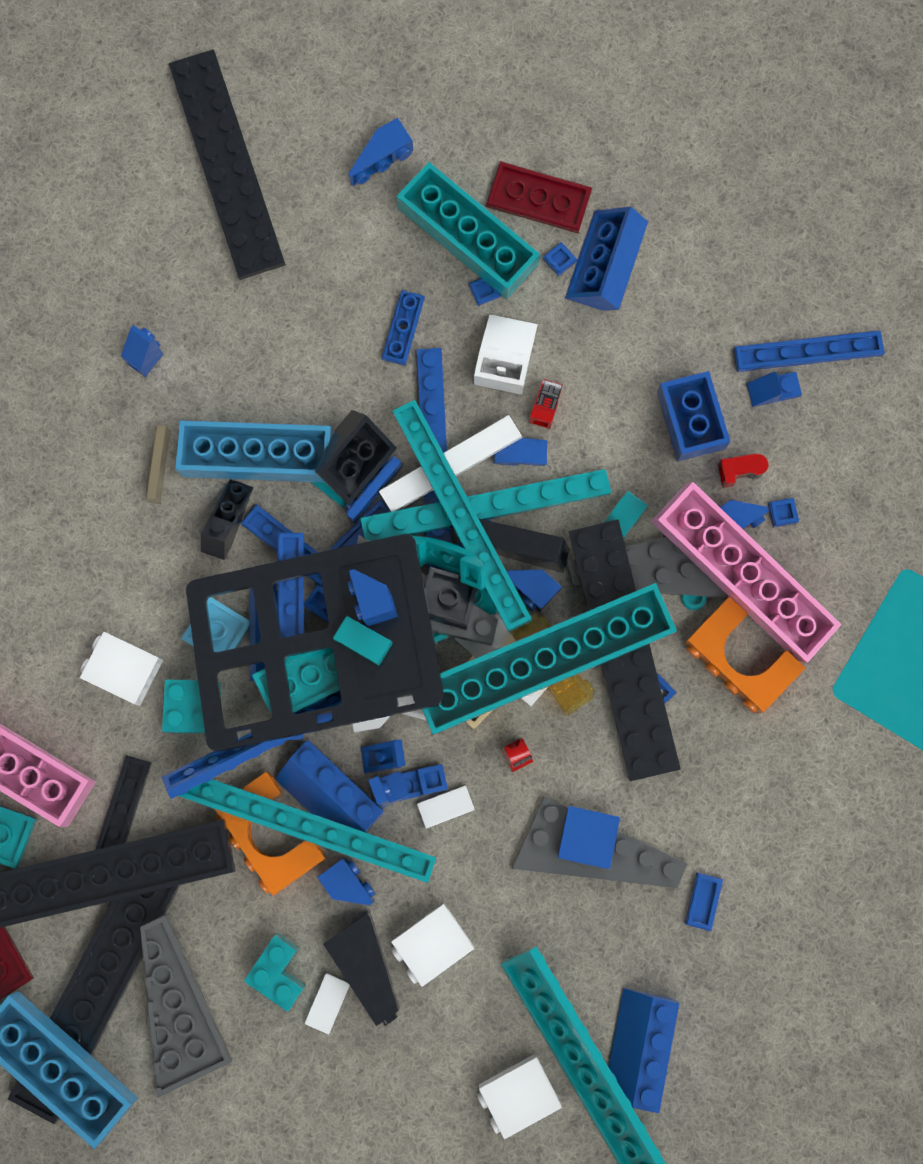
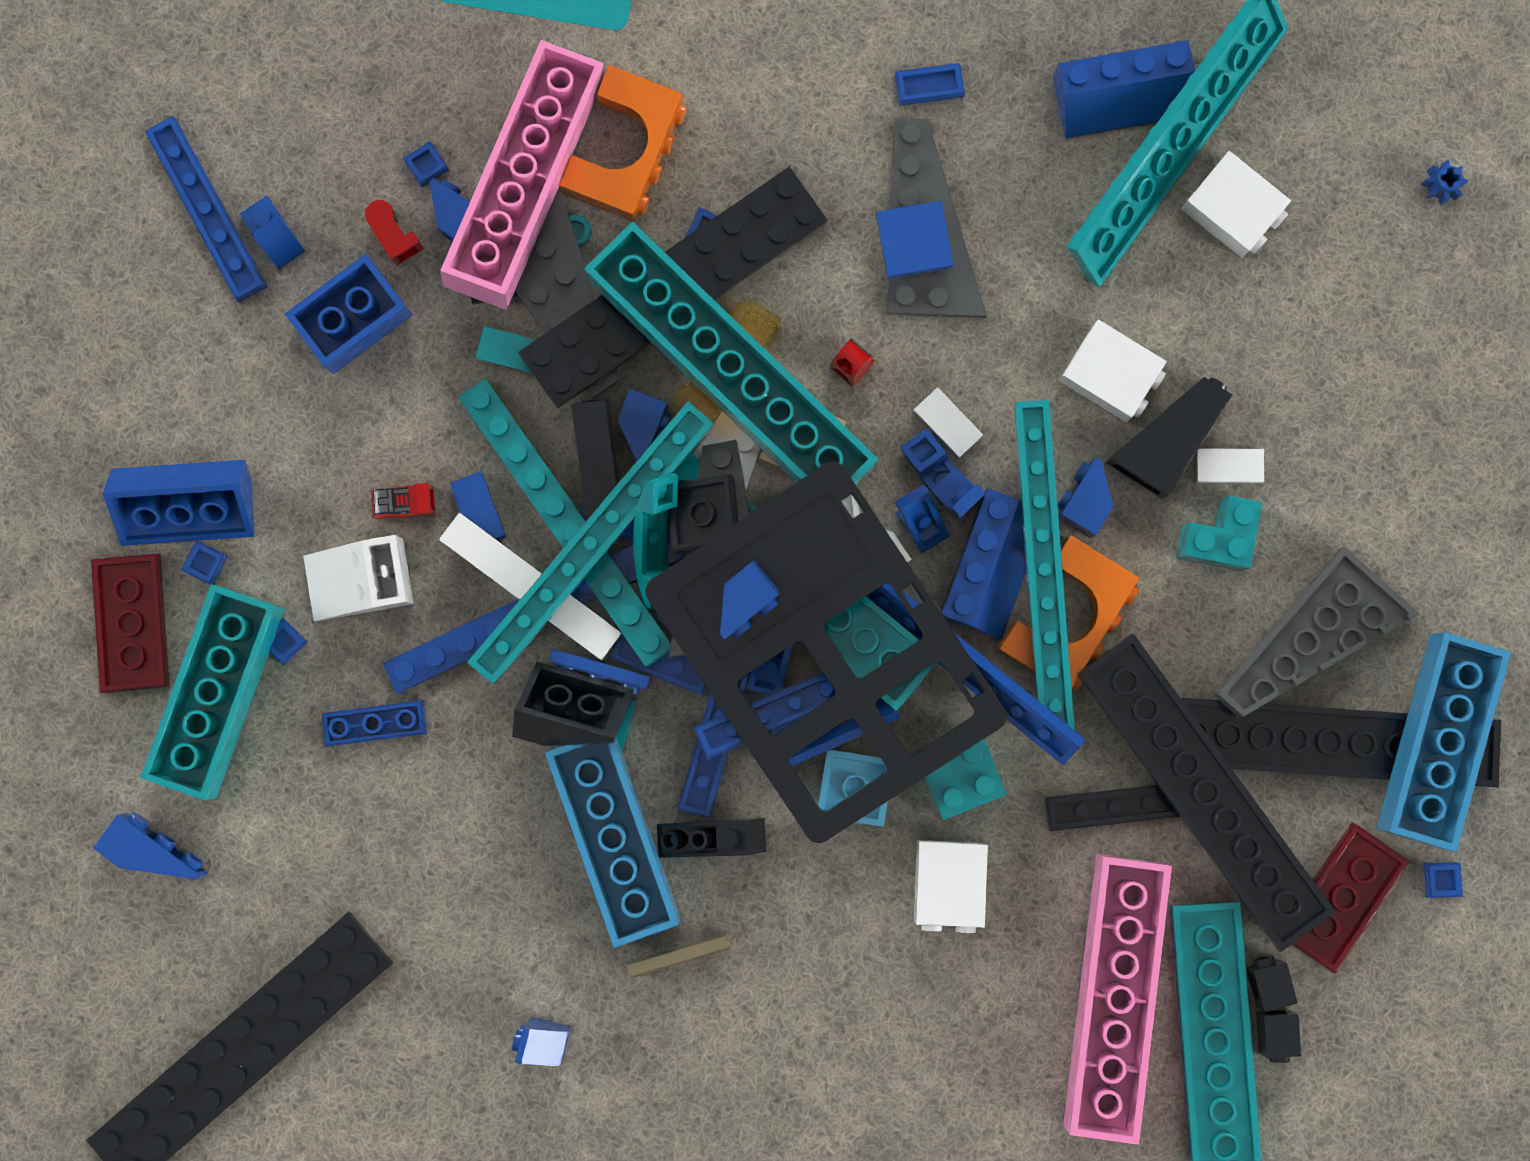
camera: 115 degrees left, 5 degrees up
(363, 640) = (801, 588): teal tile -> none

